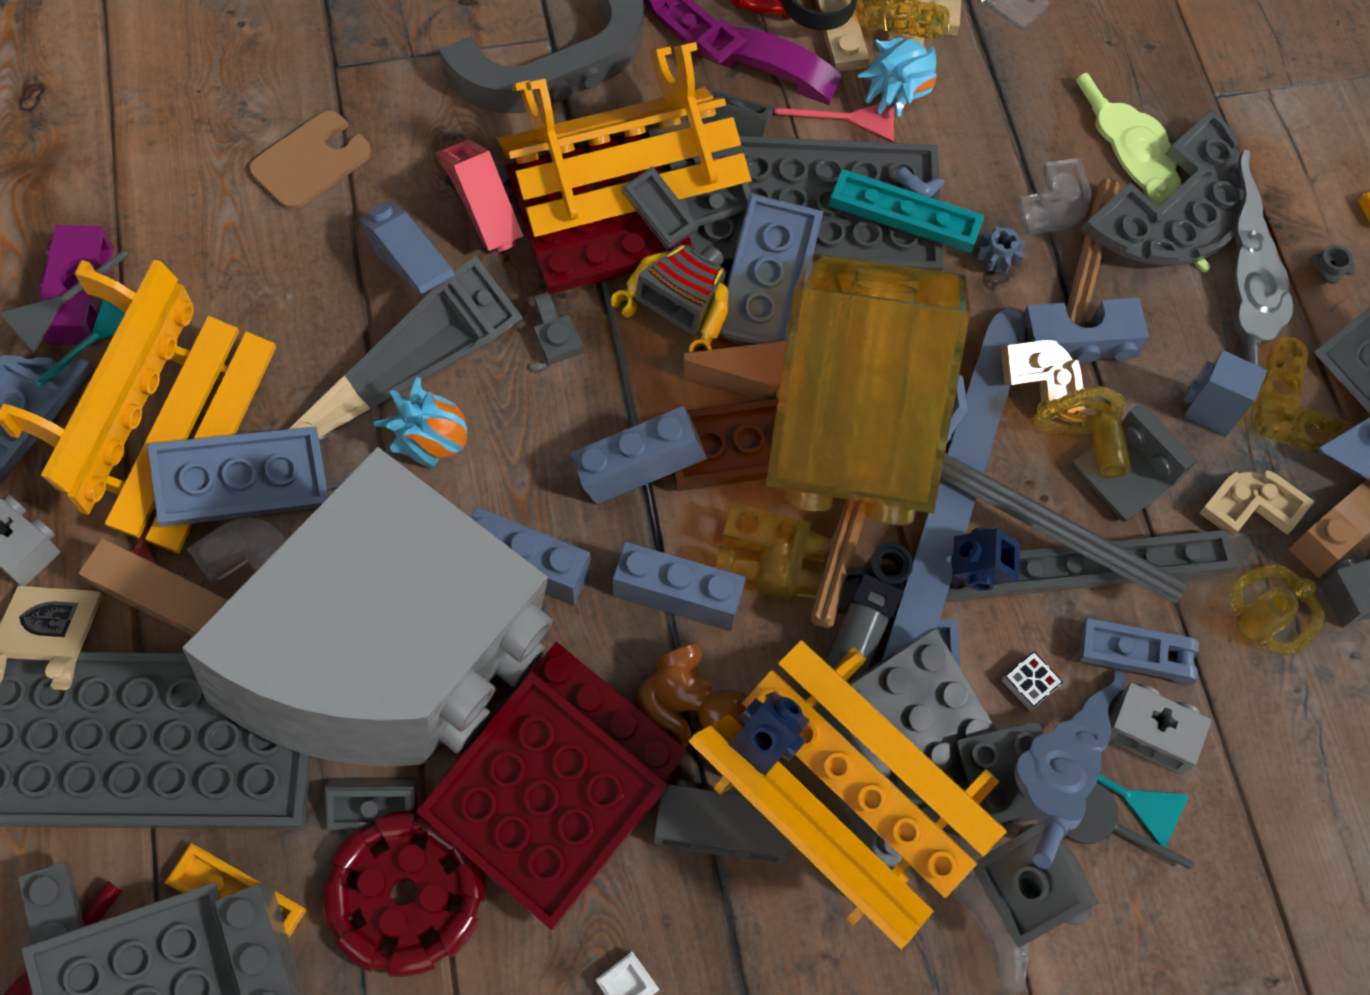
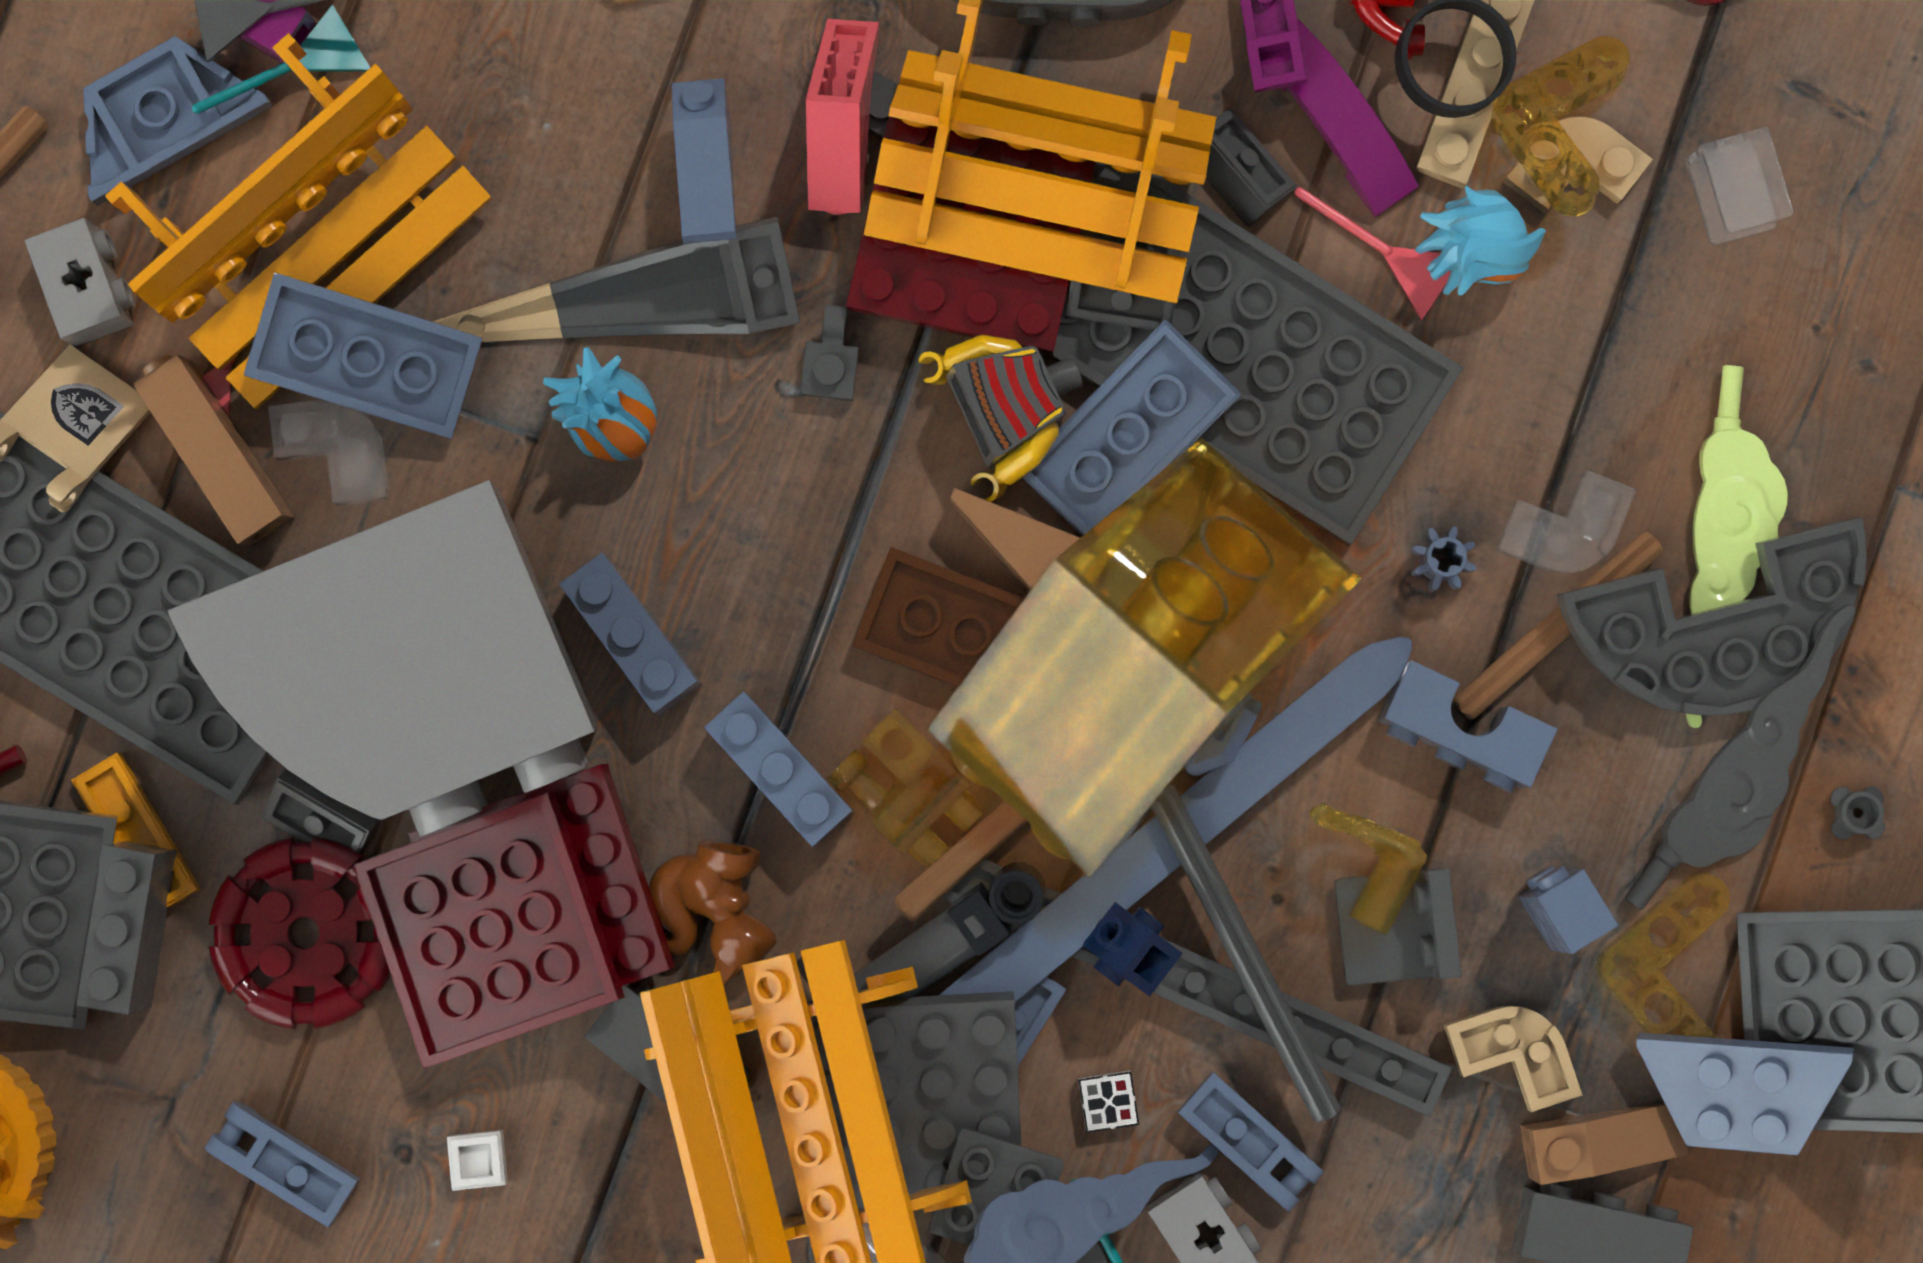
camera: 35 degrees right, 20 degrees up
(638, 455) = (824, 590): sand blue brick -> none
(660, 208) = (1034, 285): dark grey tile -> none
(770, 732) = (737, 1027): dark blue brick -> none
(906, 210) = (1350, 447): teal plate -> none
(914, 184) = (1388, 417): sand blue animal -> none
(1044, 363) = (1383, 753): plate -> none
(1276, 609) = (1421, 1200): clear yellow piece -> none

